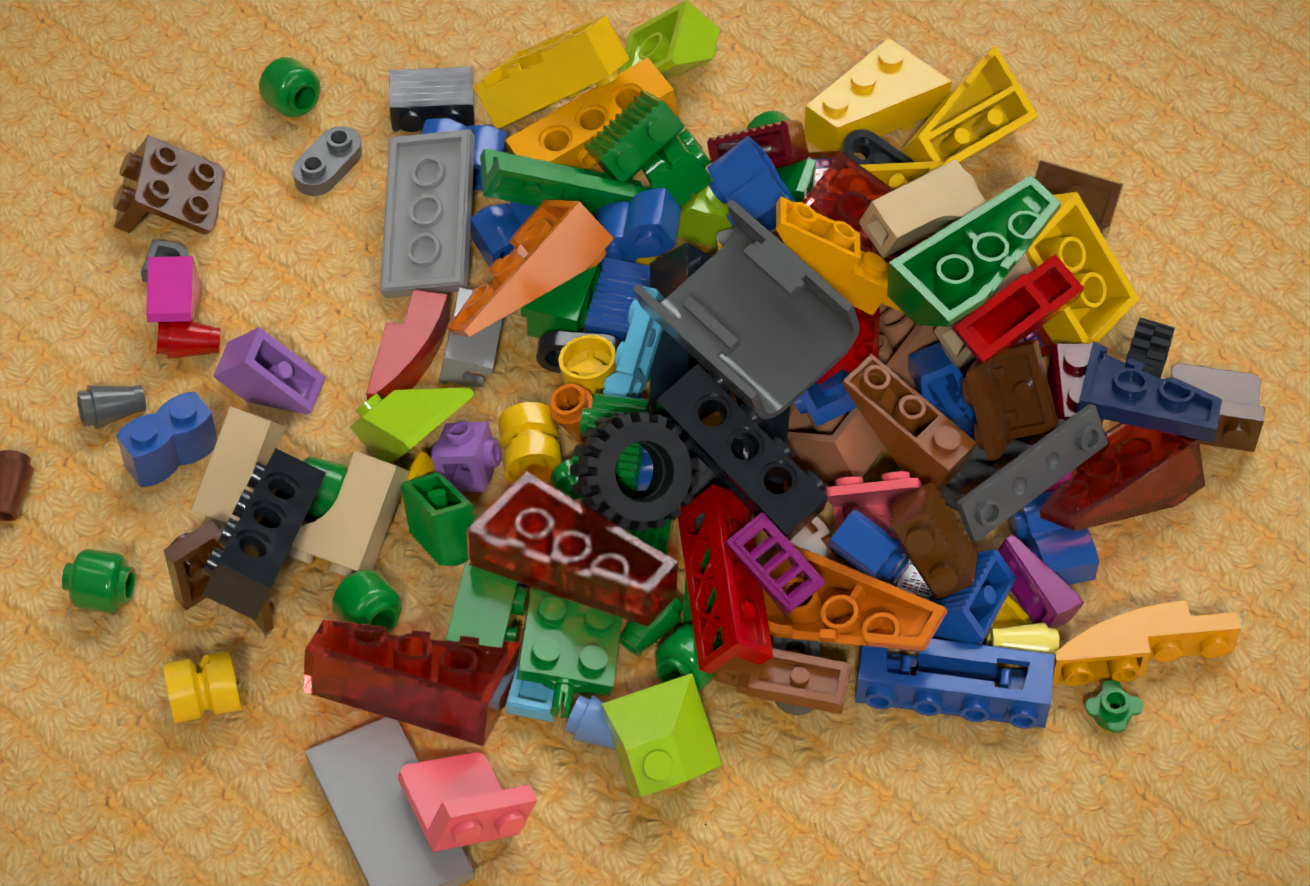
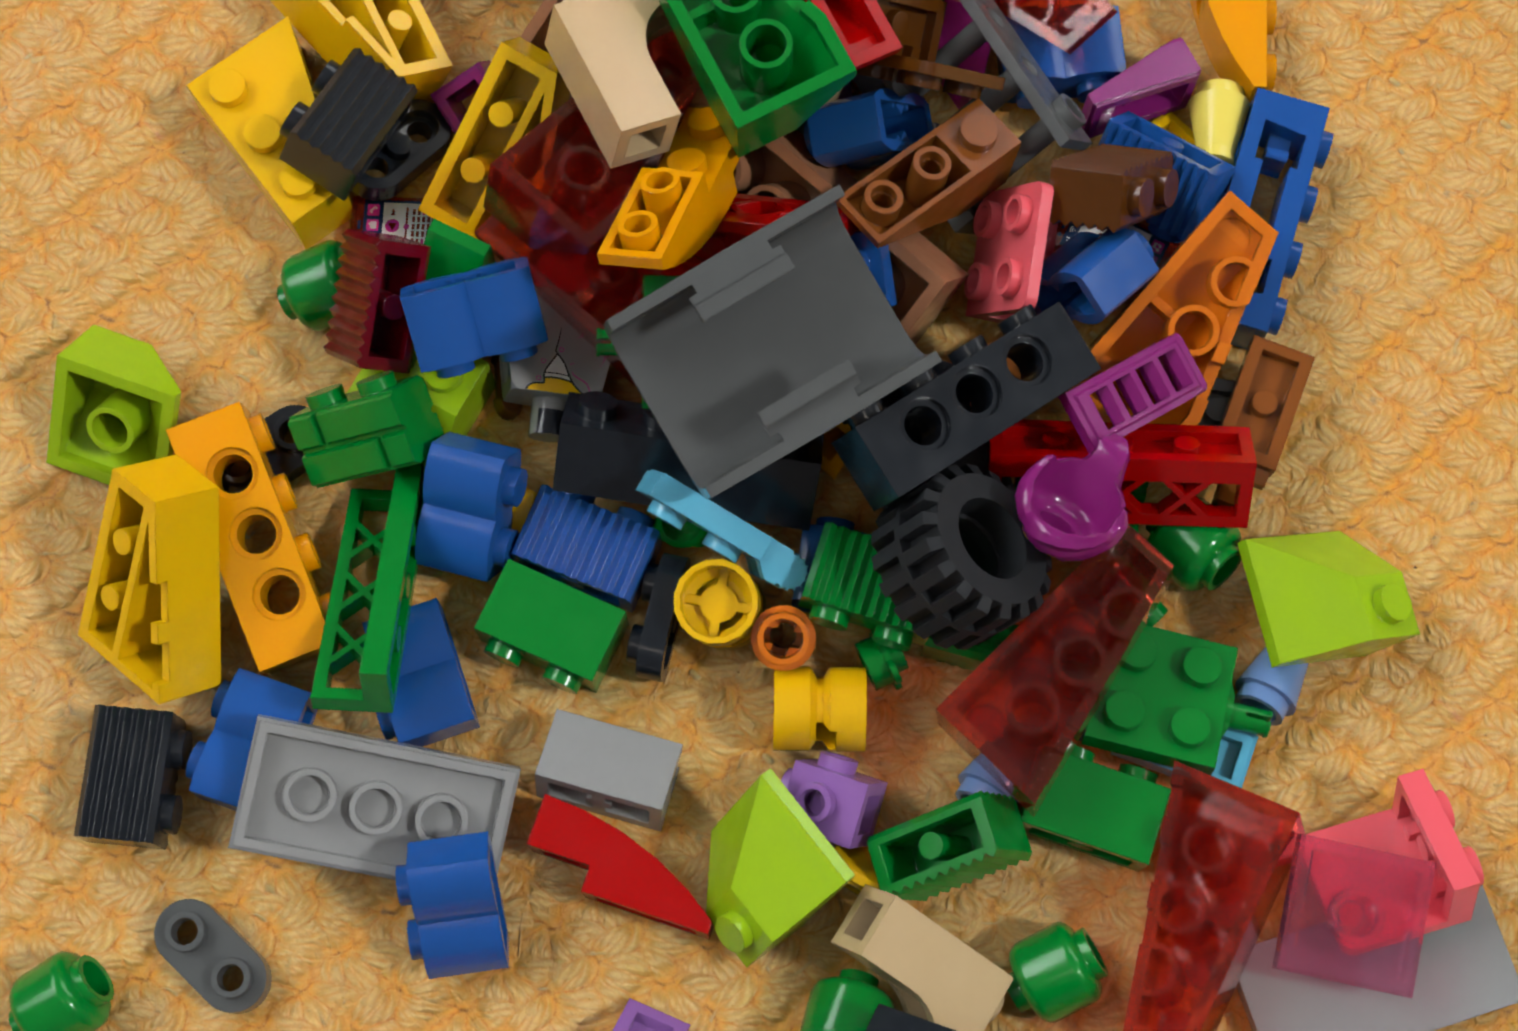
camera: 80 degrees left, 20 degrees up
(369, 261) = (454, 905): none -> blue brick
(421, 758) = (1354, 915): none -> clear pink plate
(548, 251) = (531, 649): orange wedge -> none
(634, 137) = (316, 475): green brick -> none
(681, 522) = (1075, 504): none -> magenta hair
(877, 114) = (346, 123): none -> black brick
(1113, 719) = (1304, 58): green plate -> none

